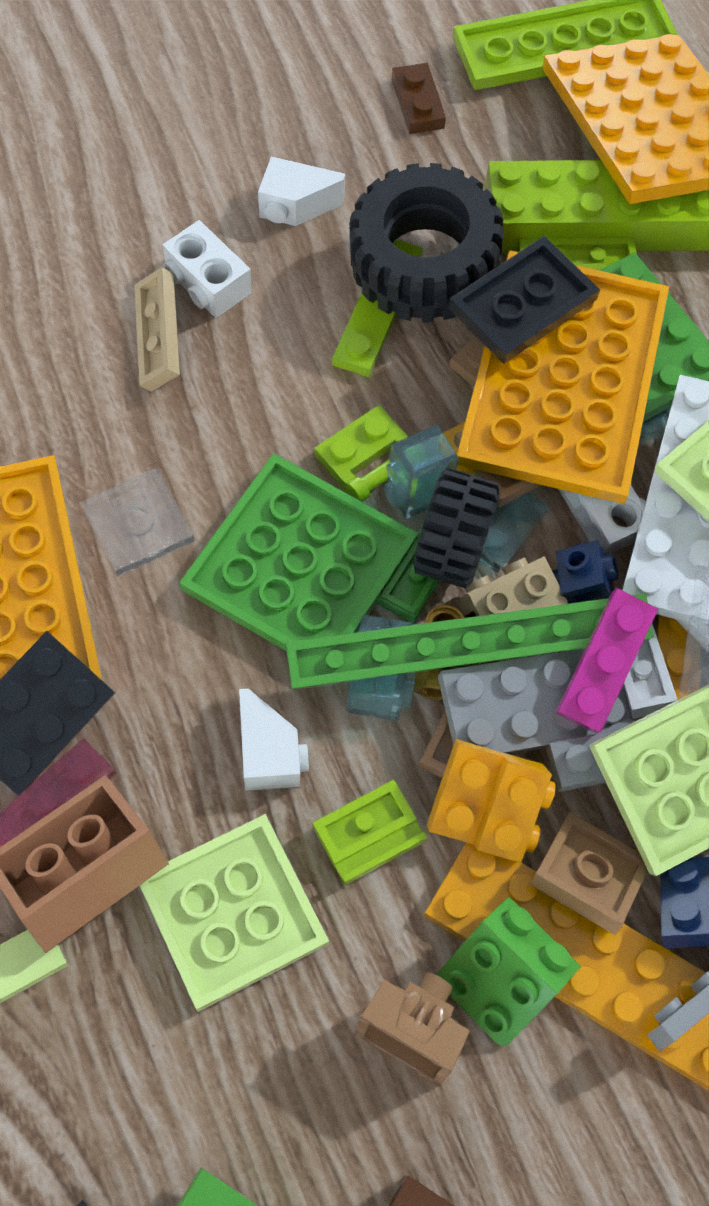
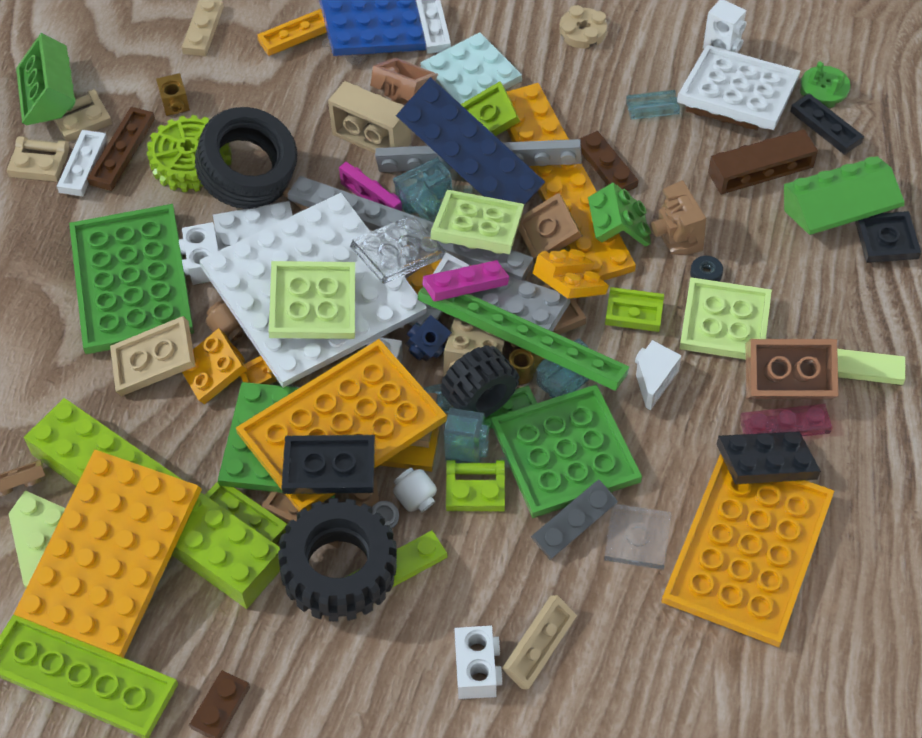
camera: 135 degrees left, 10 degrees down
(220, 480) = (574, 519): none -> dark grey plate
(298, 192) = (372, 678): white slope -> none
(333, 1003) = (710, 263): none -> black wheel
(426, 393) = (415, 490): none -> white head
(434, 350) = (388, 511): none -> light grey plate
(621, 1093) = (607, 162): none -> reddish brown plate

